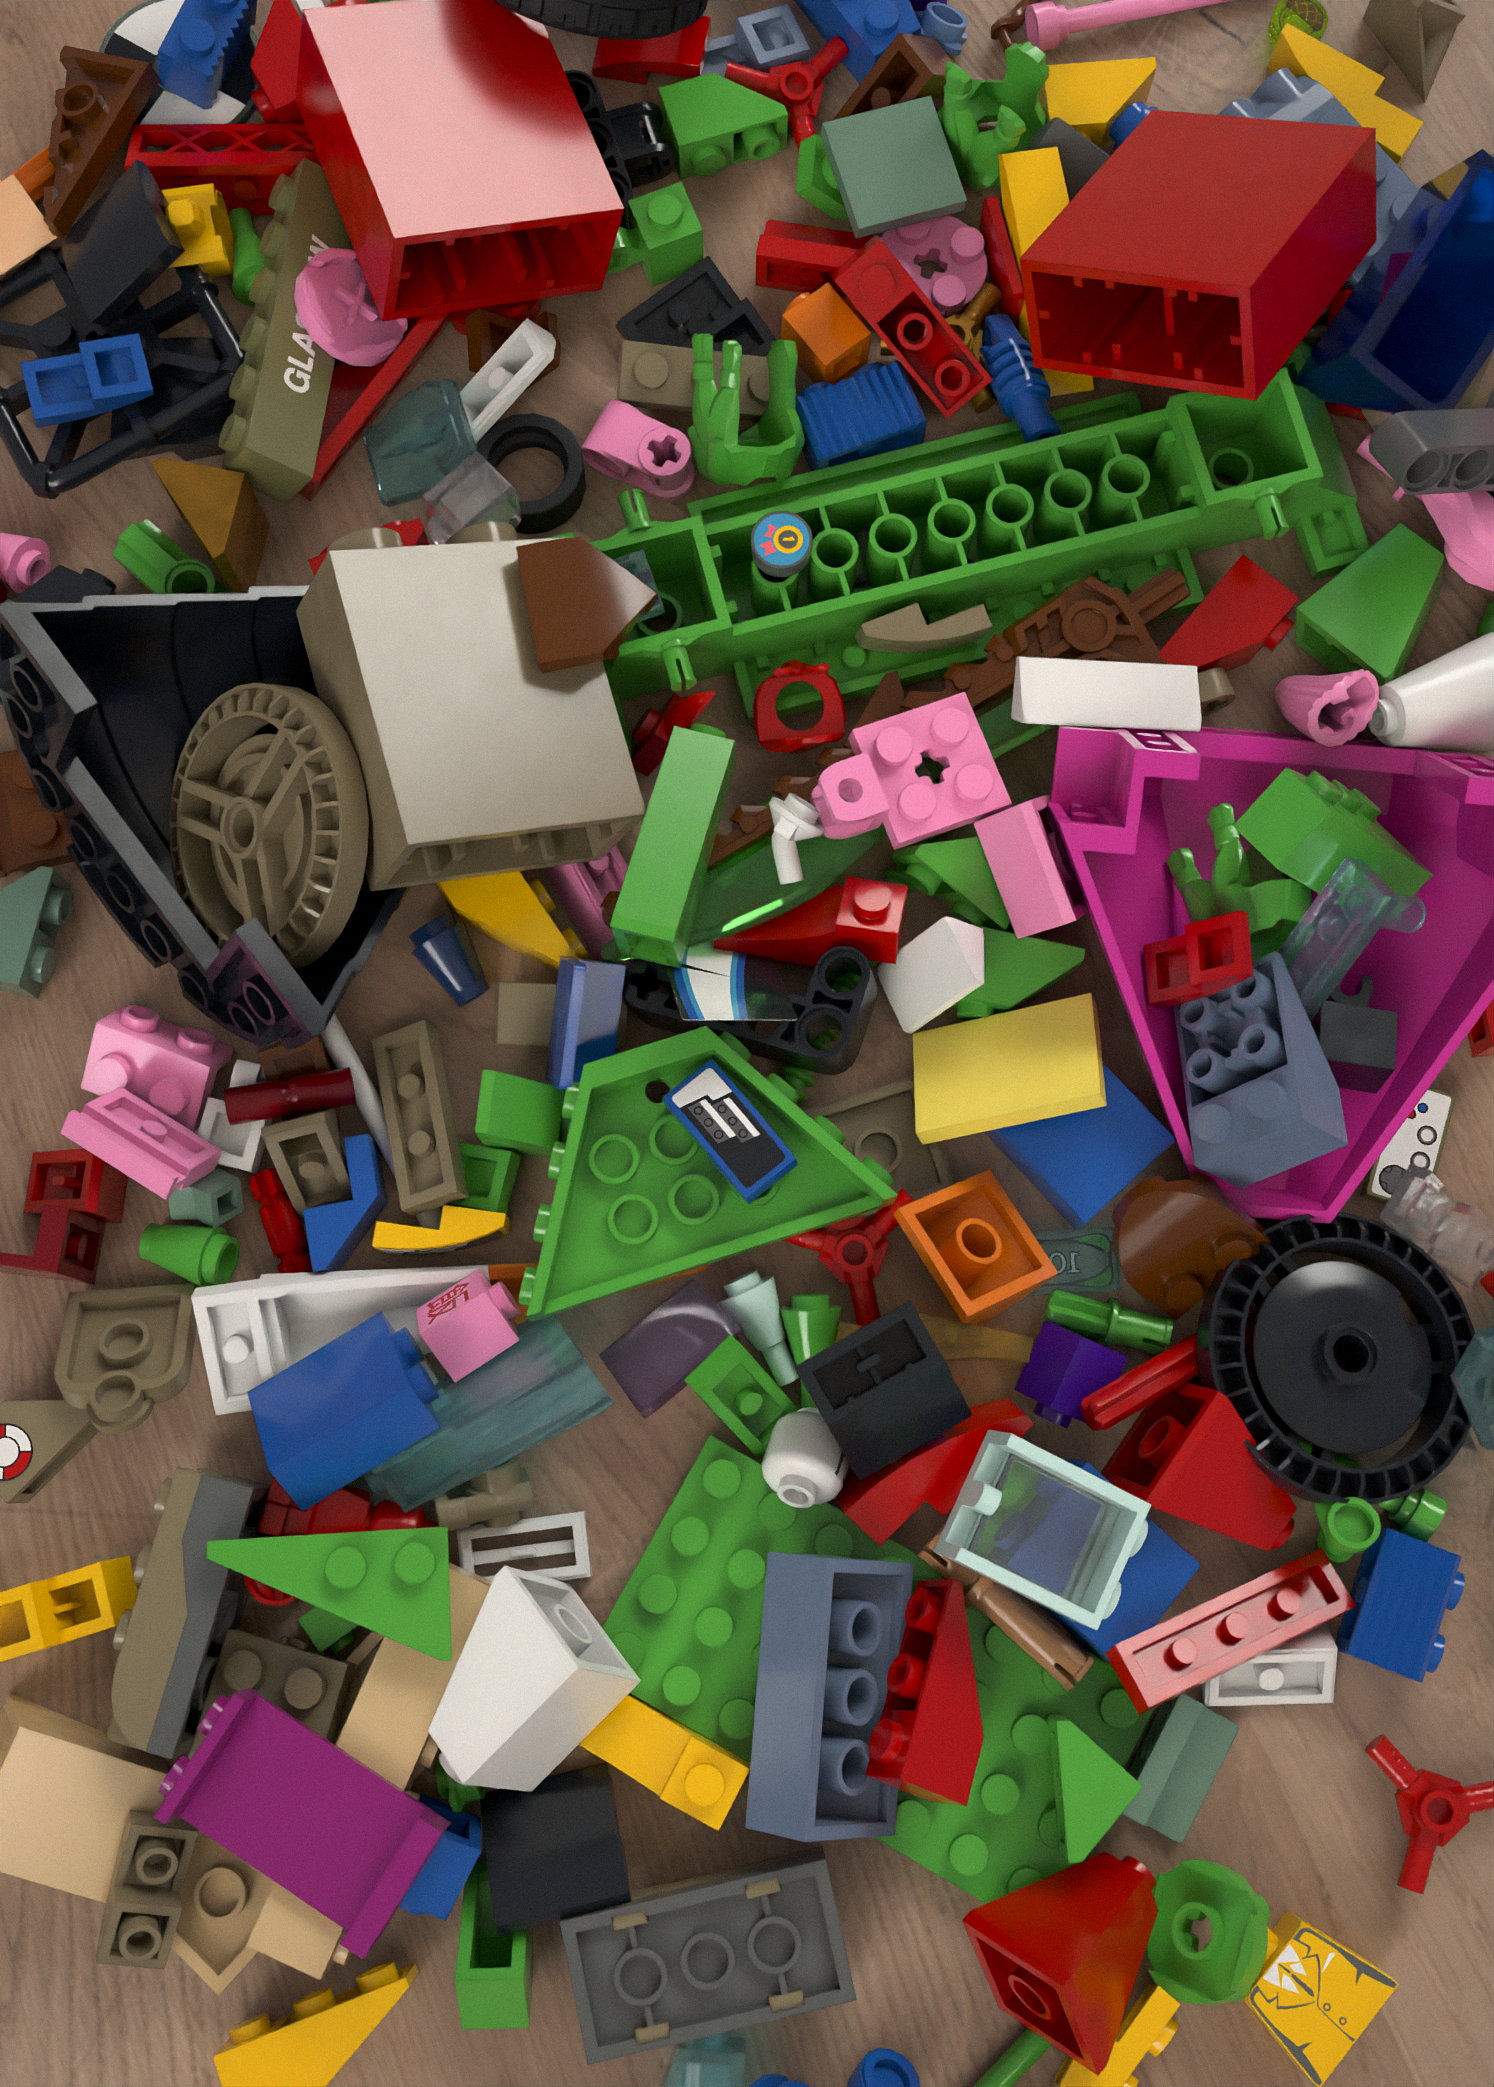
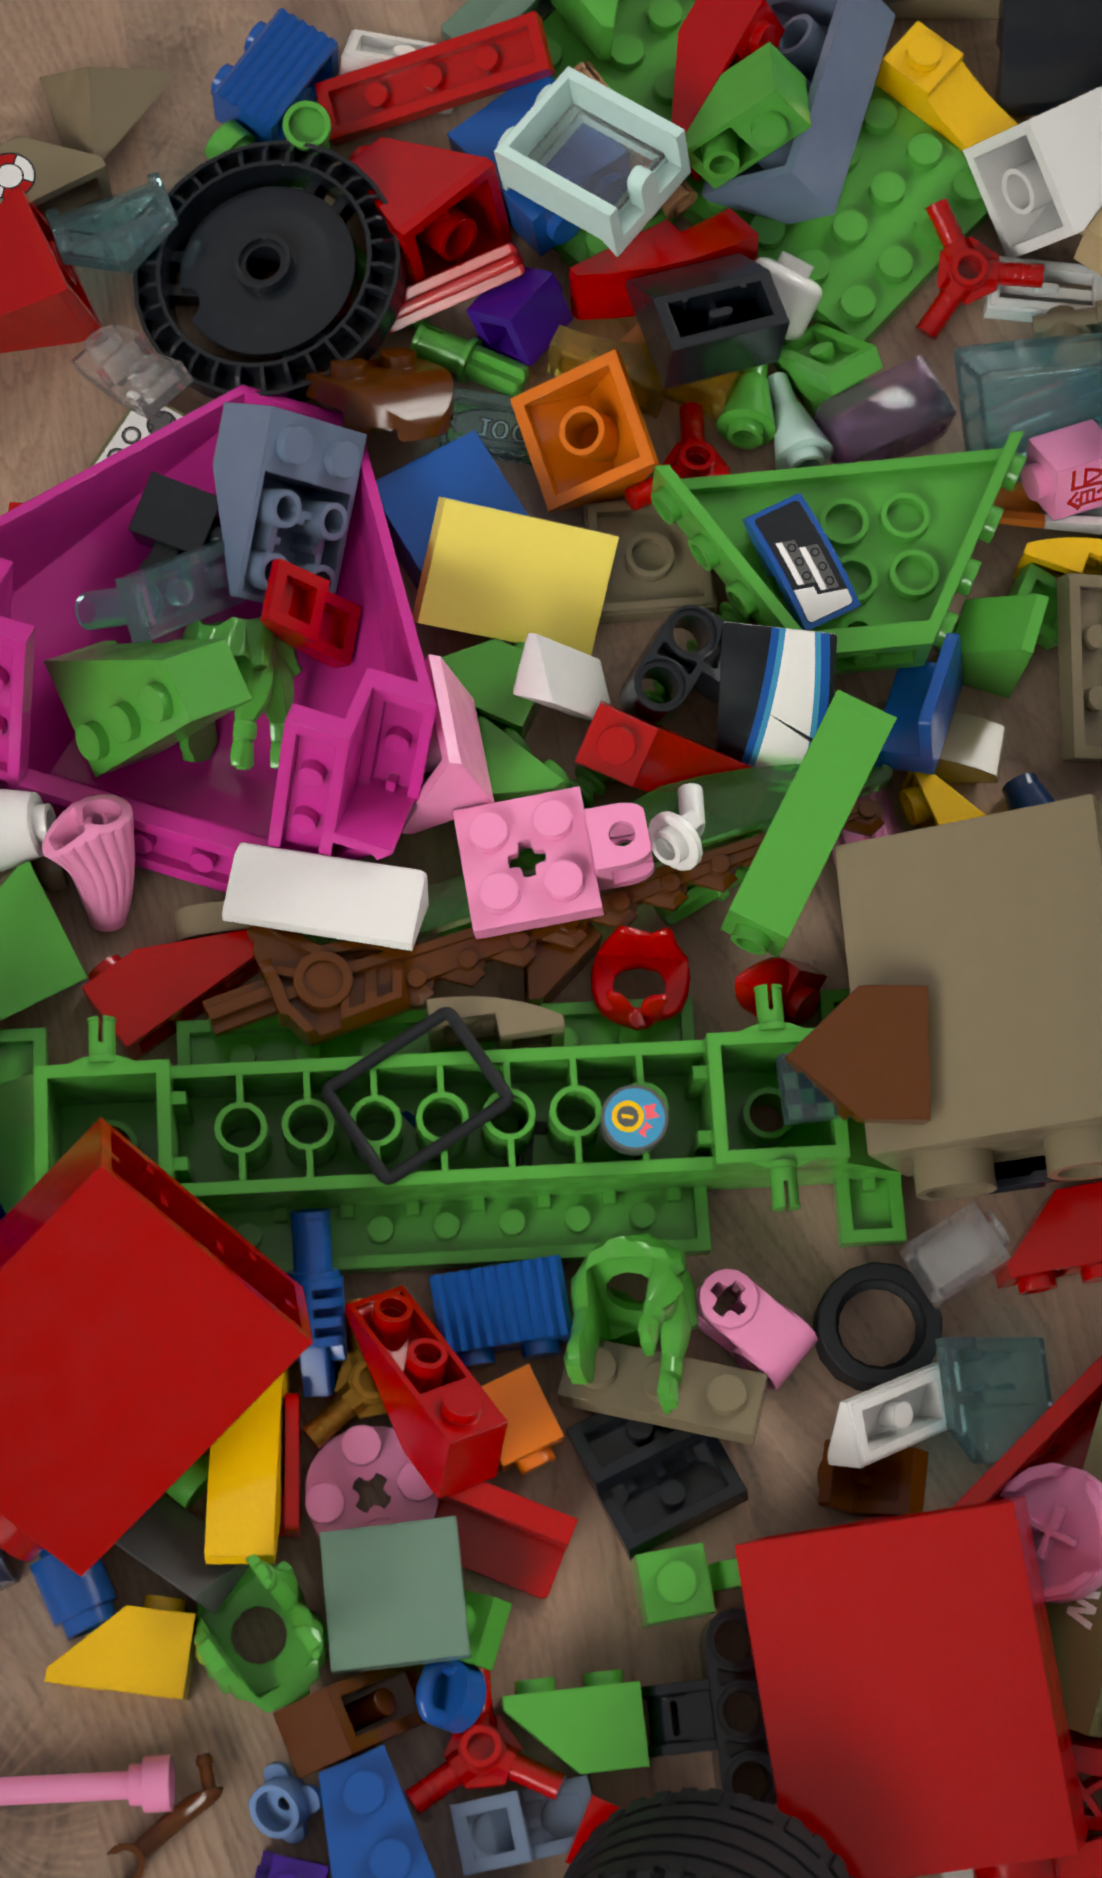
camera: 175 degrees left, 5 degrees down
(611, 1543) = (968, 271): none -> red piece
(825, 107) = (450, 1695): none -> blue tile
(885, 1632) = (748, 116): none -> bright green slope
(943, 497) = (447, 1140): none -> black piece

